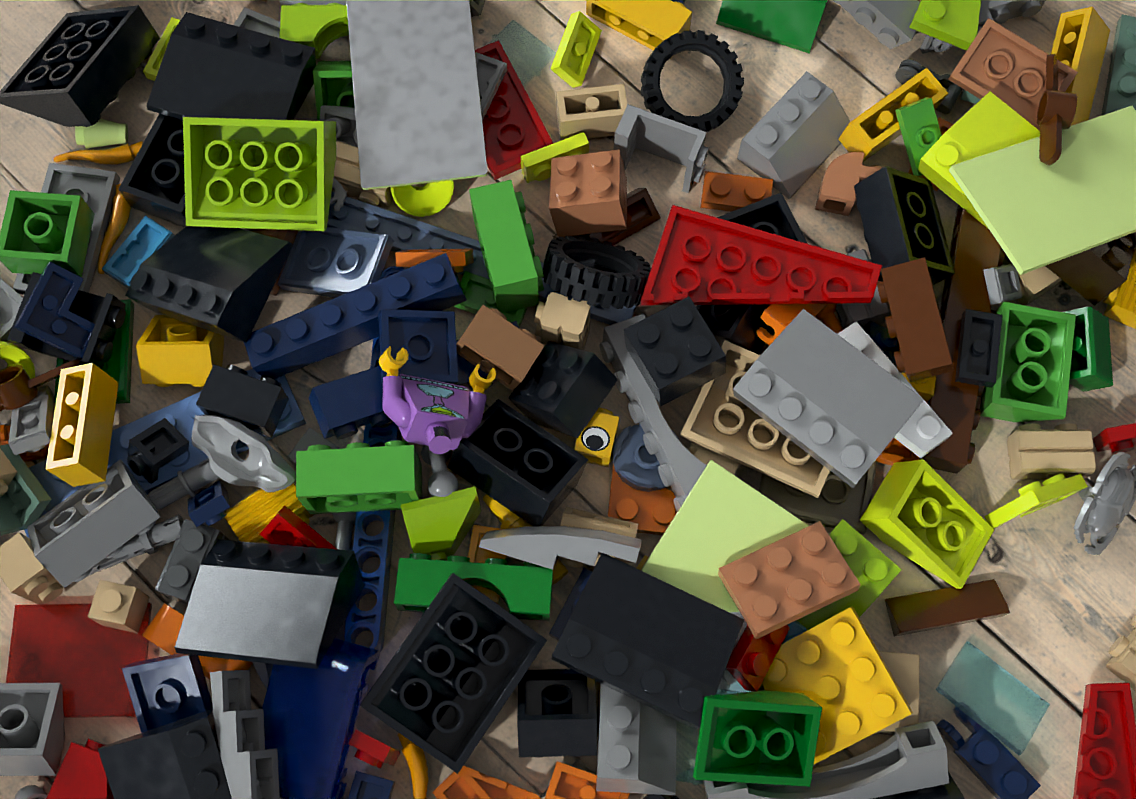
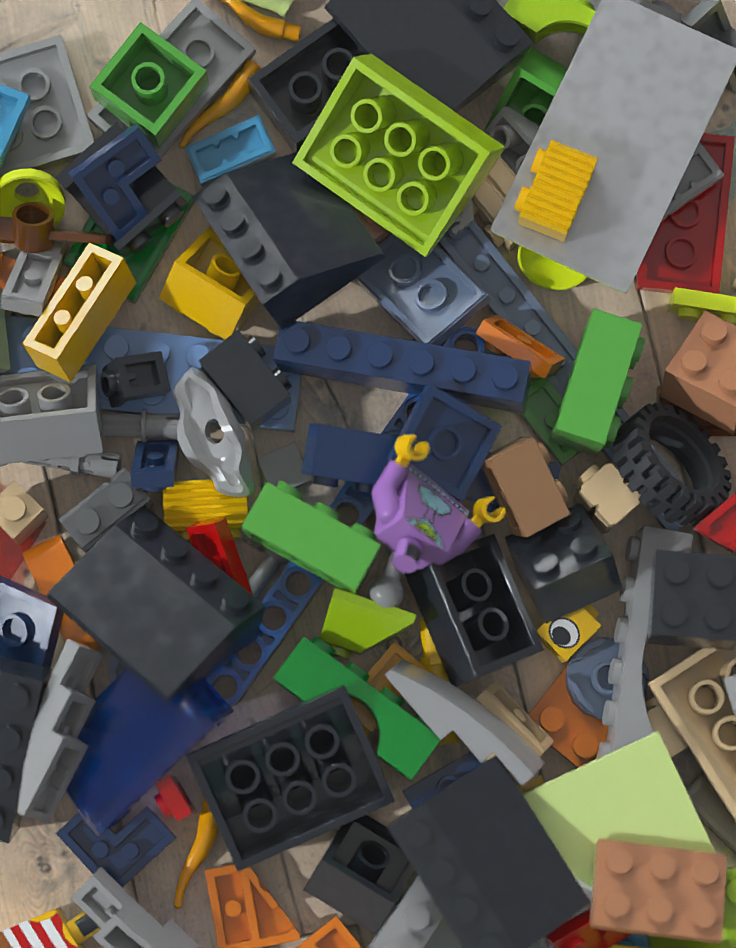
camera: 30 degrees right, 10 degrees up
(391, 129) = (556, 190): none -> yellow brick

